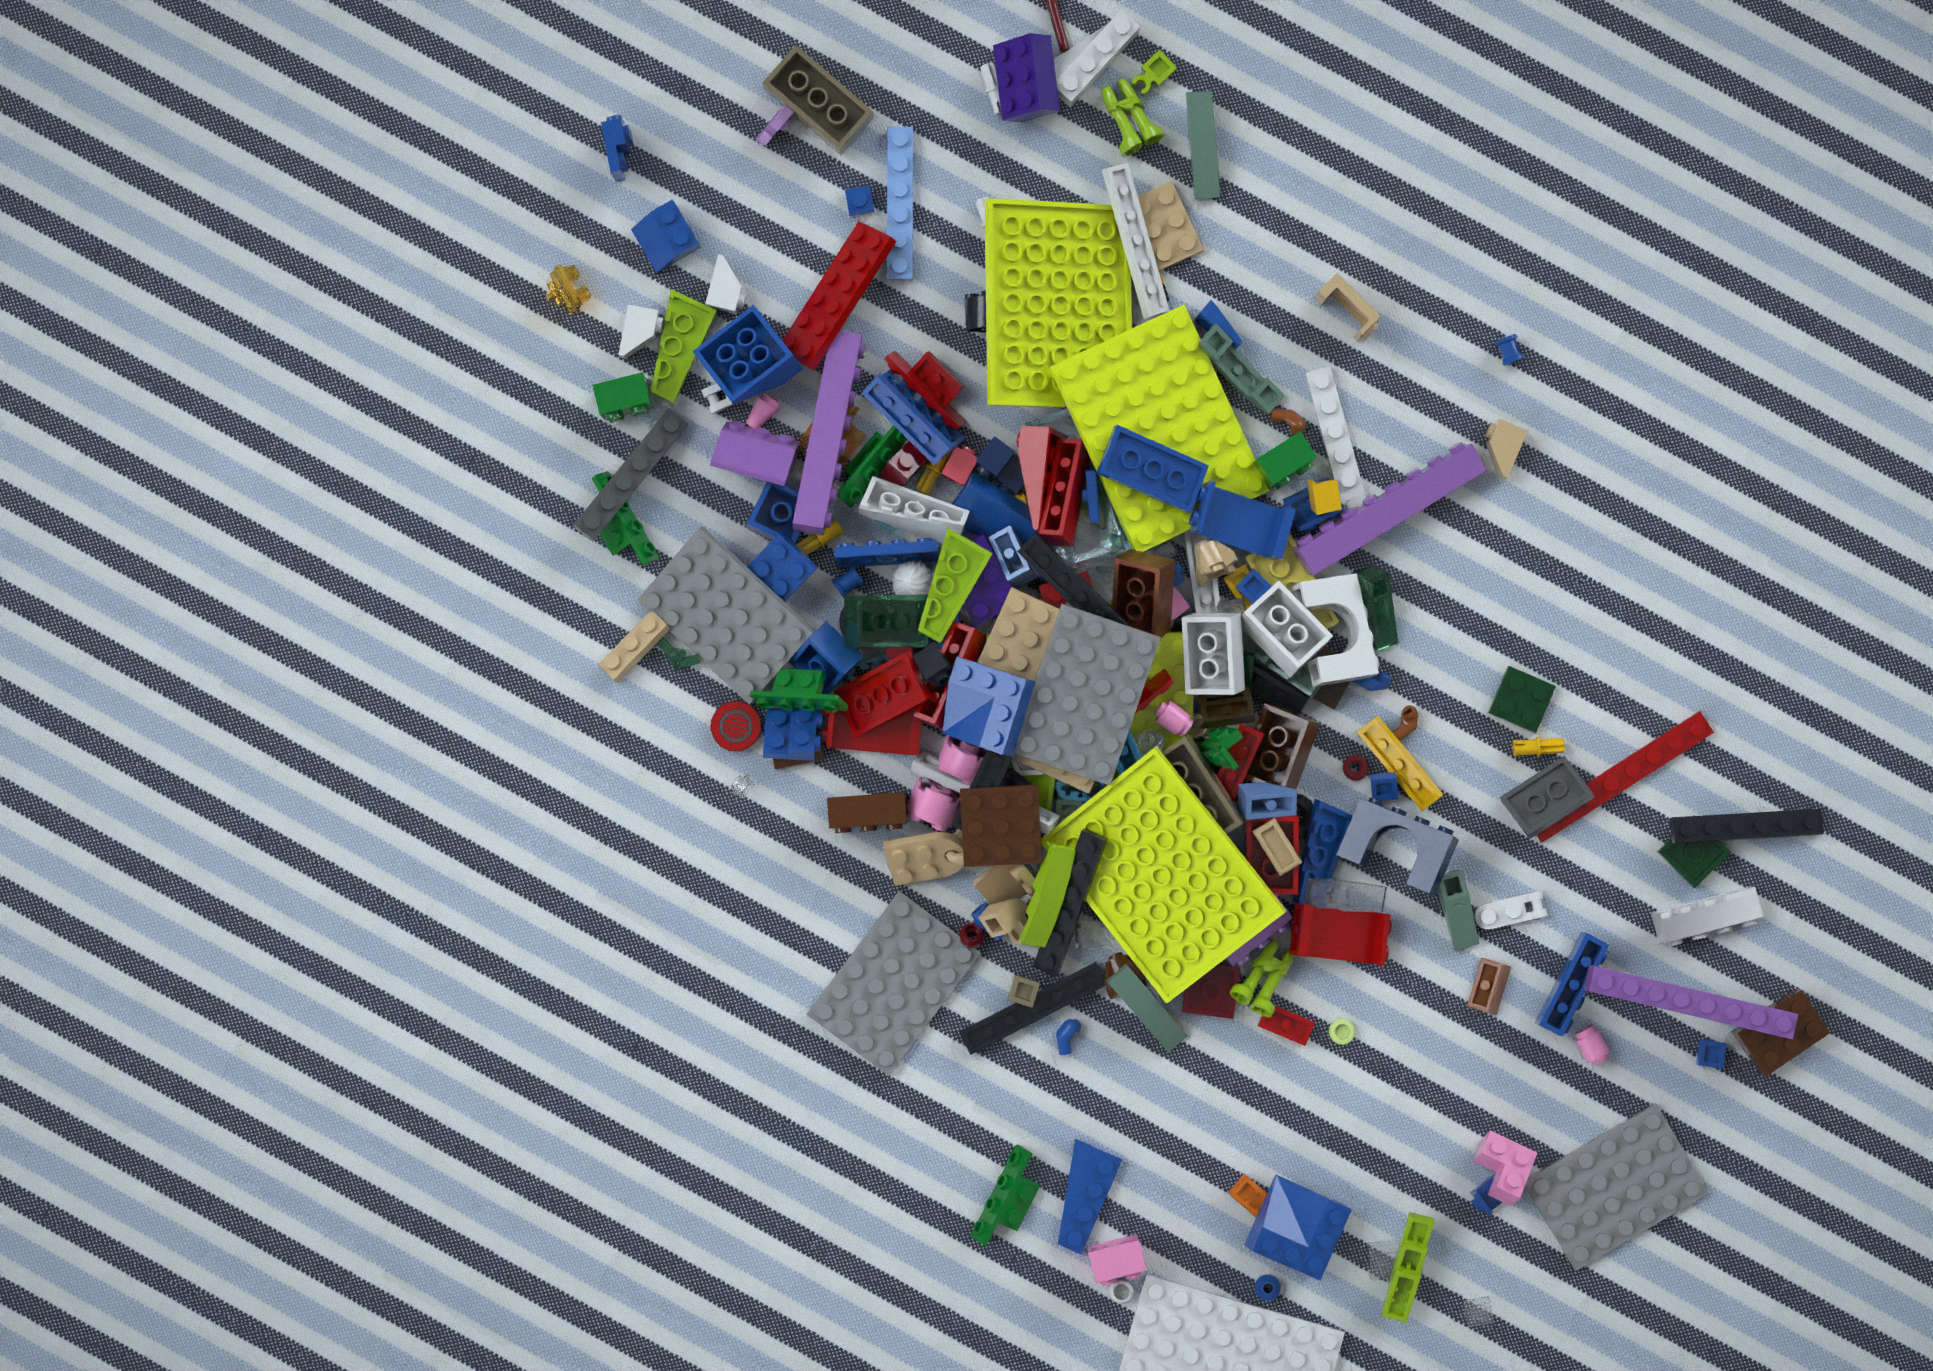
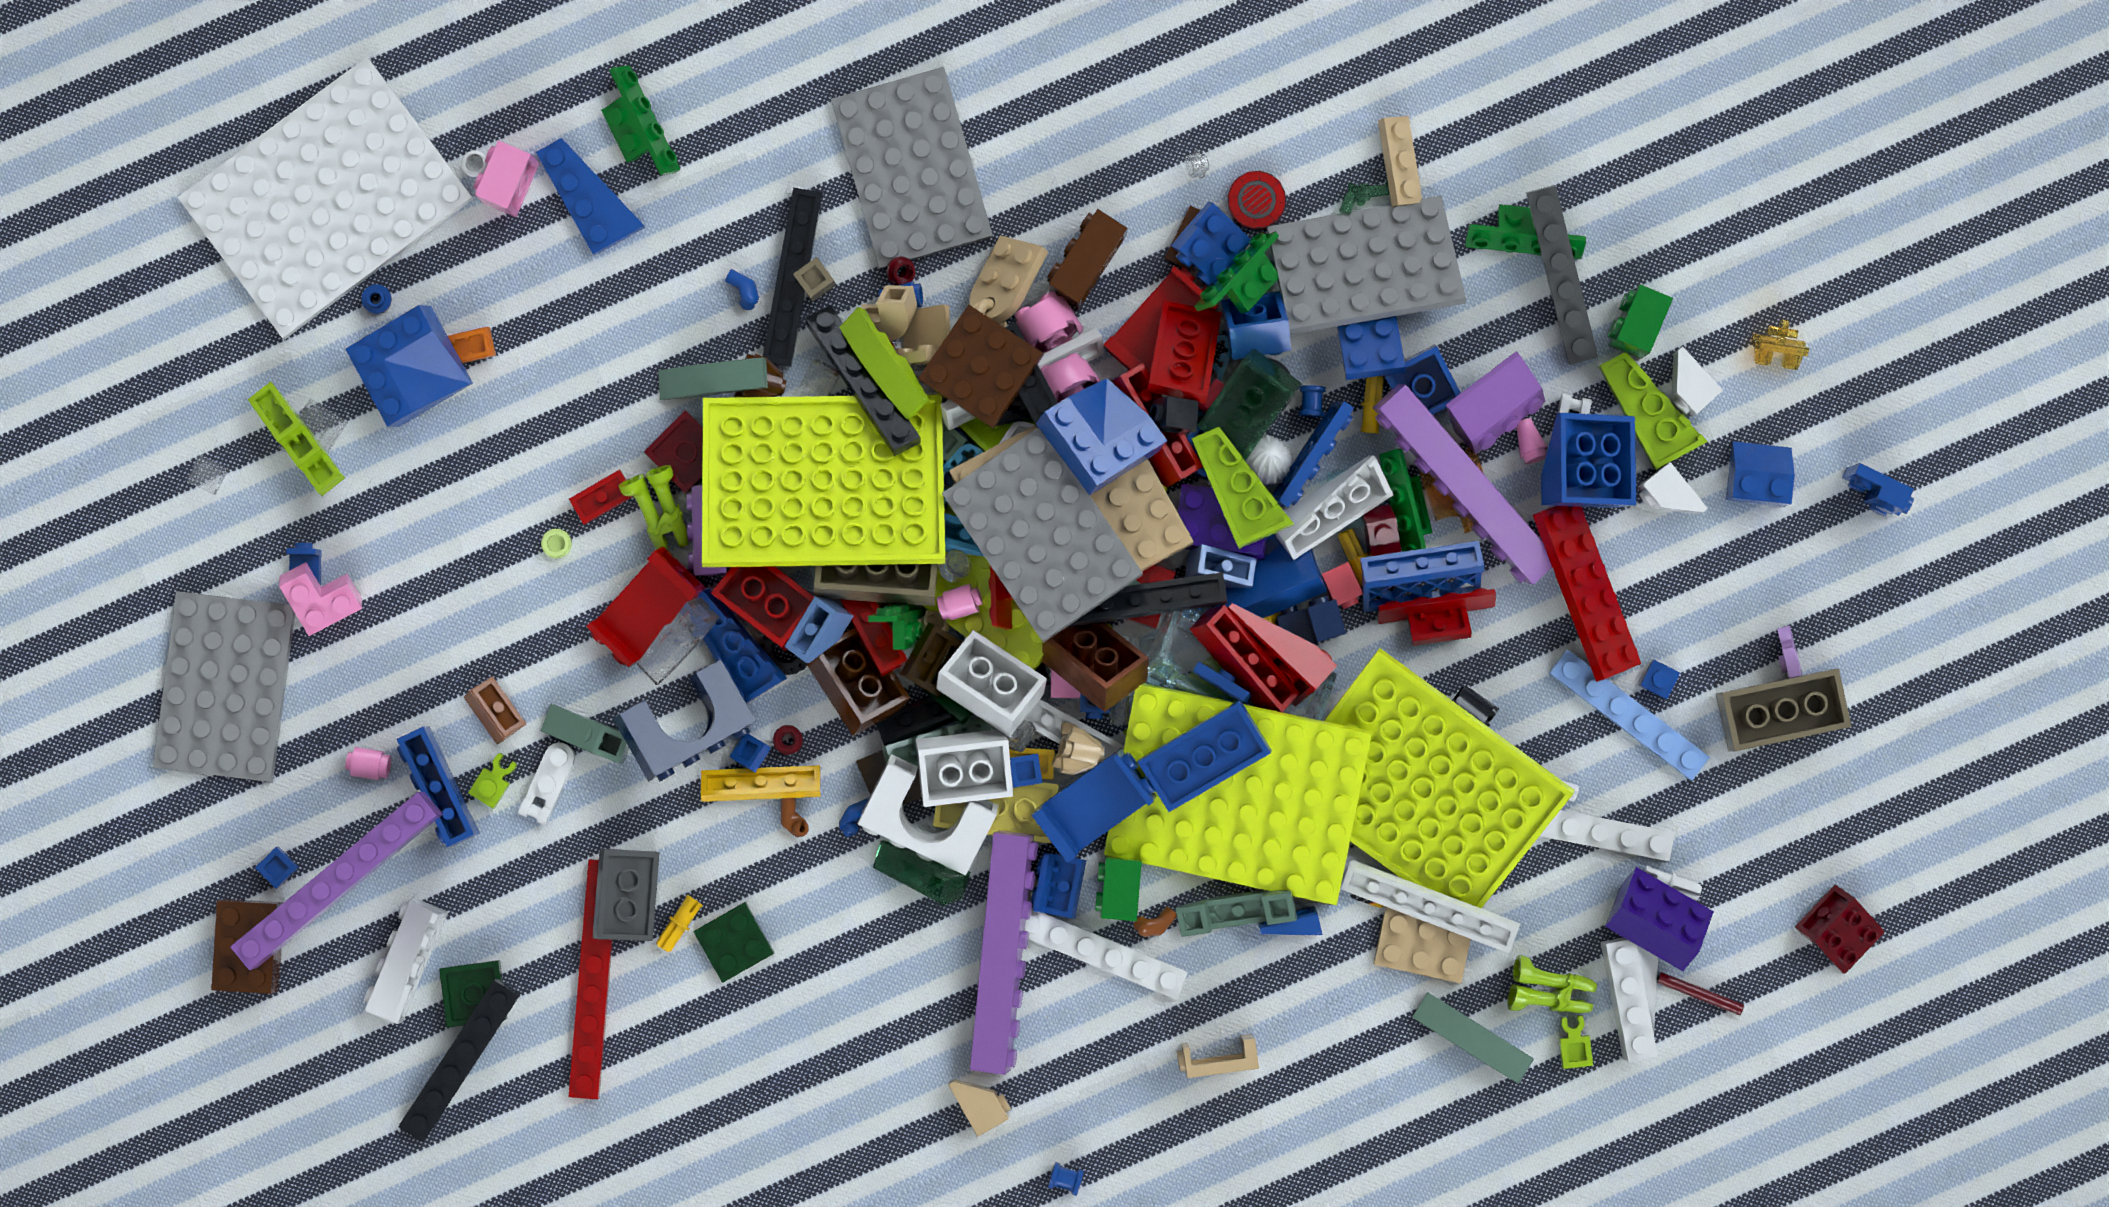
camera: 125 degrees right, 0 degrees up
(991, 153) = (1610, 835): none -> white plate
(1277, 846) = (768, 606): tan tile -> none
(1324, 496) = (1059, 899): yellow panel -> none
(1541, 949) = (491, 785): none -> lime plate

